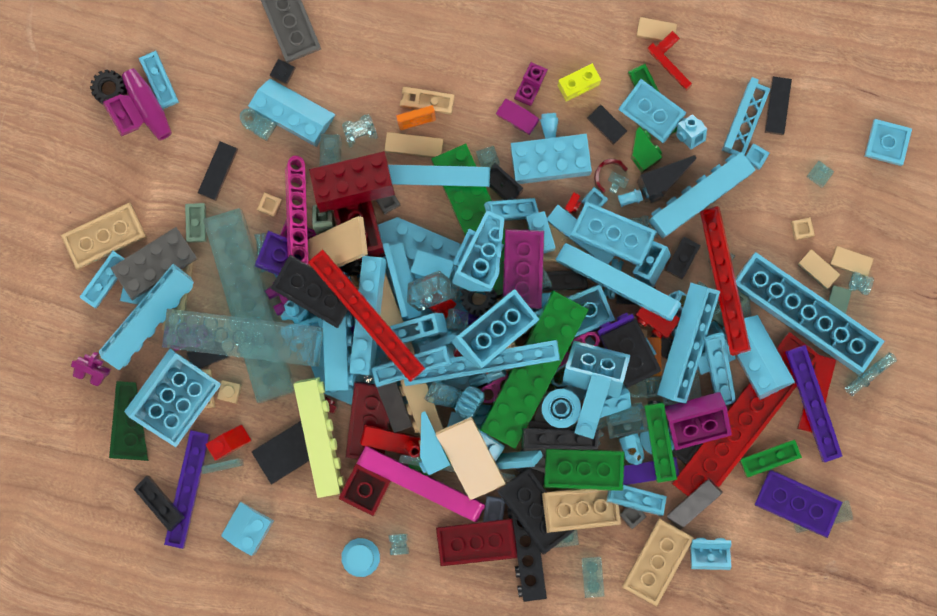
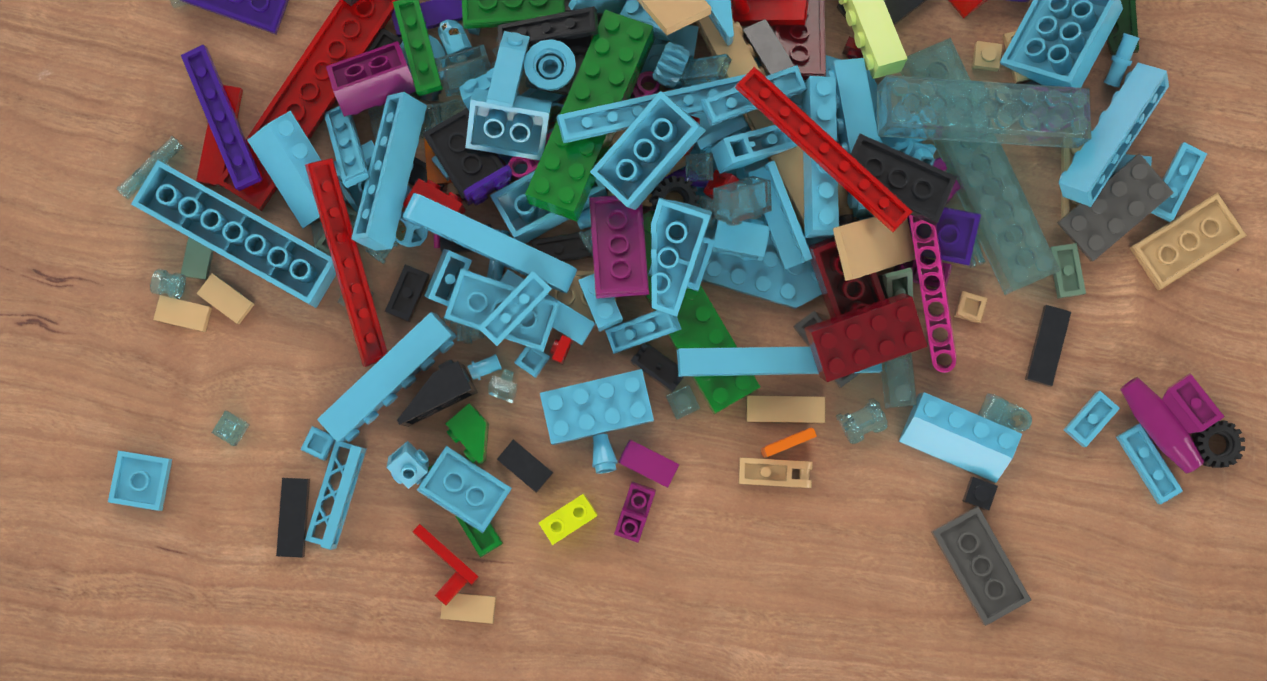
camera: 175 degrees right, 0 degrees up
(92, 366) = (1177, 65): magenta hips -> none
(130, 374) = (1121, 60): none -> medium azure pin
(195, 114) = (1091, 419): none -> medium azure plate
(604, 230) = (515, 308): none -> medium azure plate
(606, 162) = (531, 400): dark red helmet -> none
(770, 458) = (274, 46): green plate -> none
(802, 228) = (250, 351): tan tile -> none

